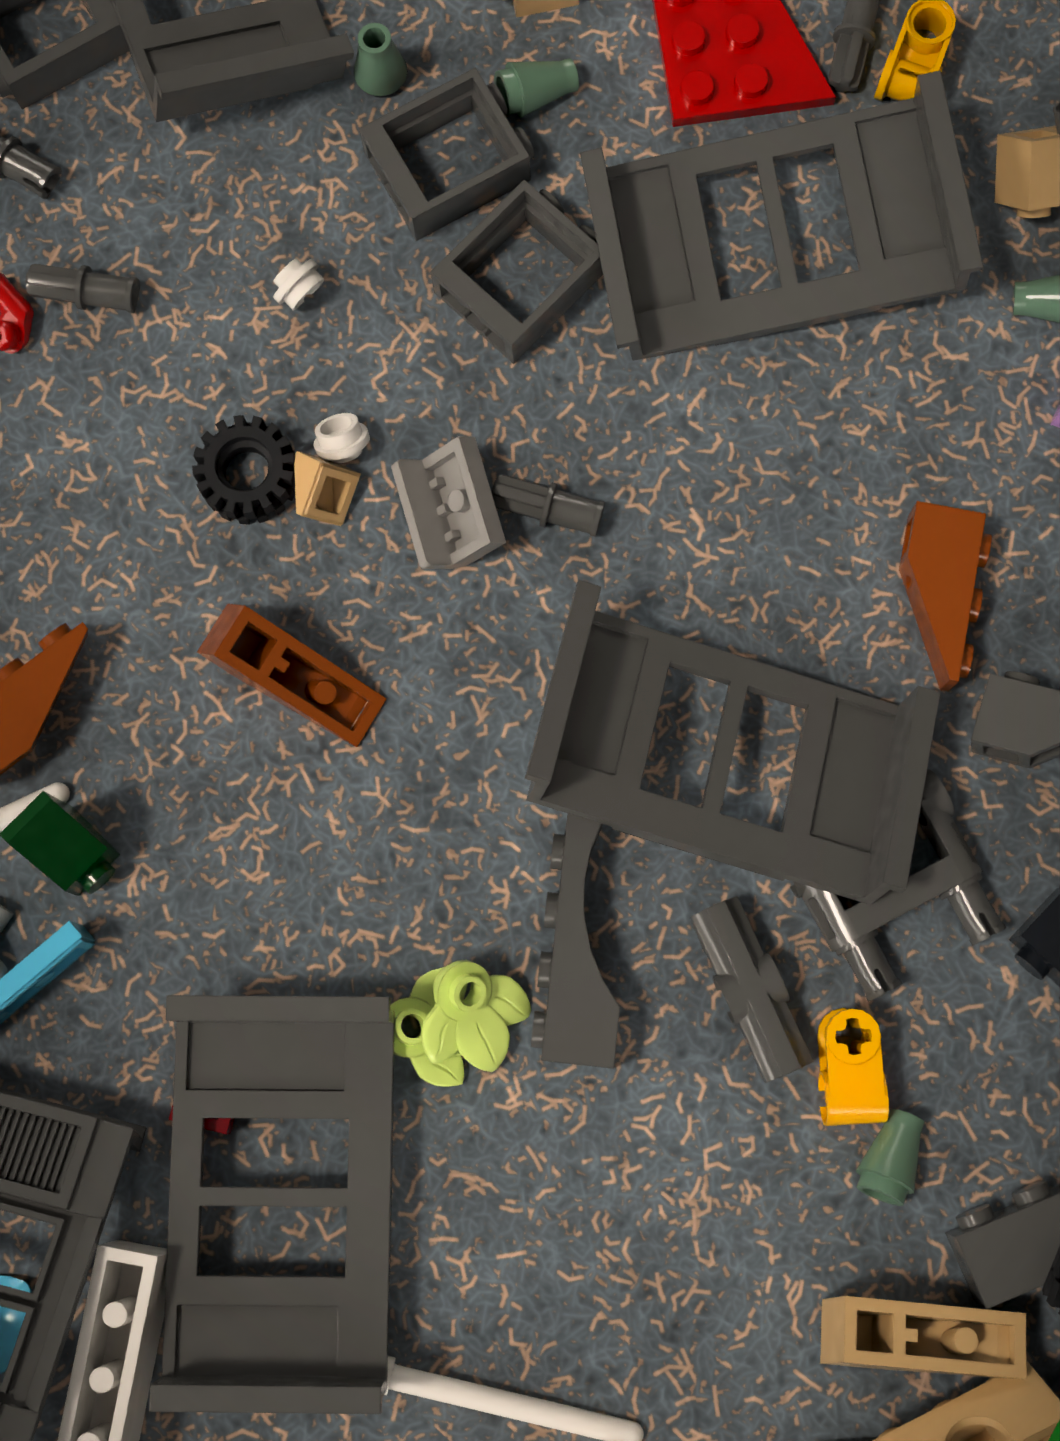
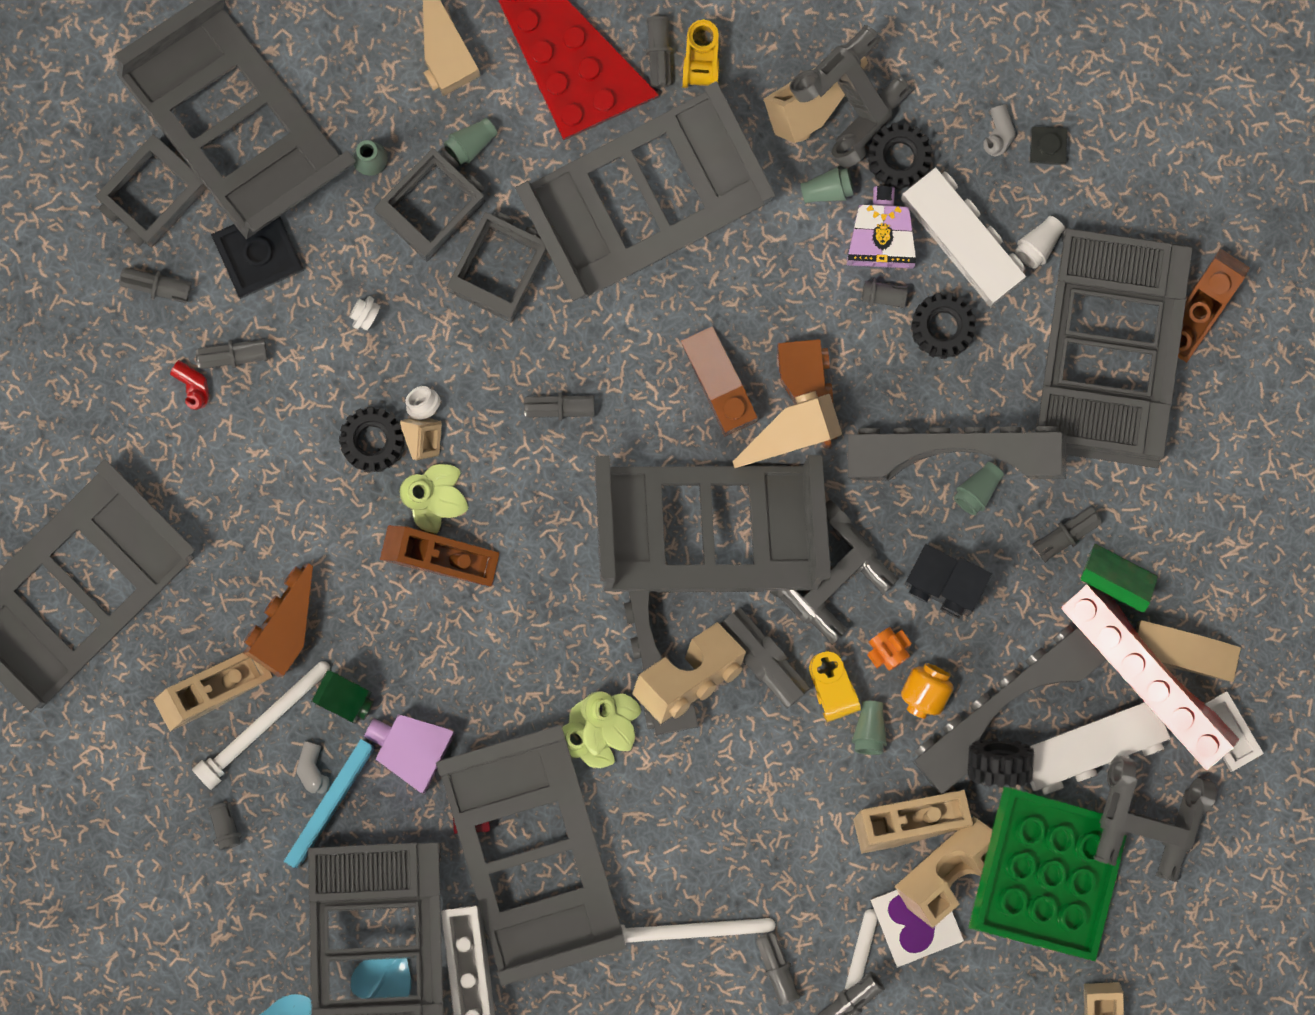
camera: 20 degrees left, 5 degrees up
(144, 960) = (410, 748): none -> lavender torso
(170, 161) = (258, 260): none -> black tile
(320, 588) = (439, 496): none -> yellowish green plate
(449, 505) = (501, 426): light grey bracket -> none
(587, 996) = (670, 691): none -> tan arch
(807, 541) = (719, 381): none -> slope
(909, 636) = (796, 427): none -> tan slope
(960, 1036) = (889, 649): none -> orange gear
(1004, 1124) = (927, 690): none -> light orange head

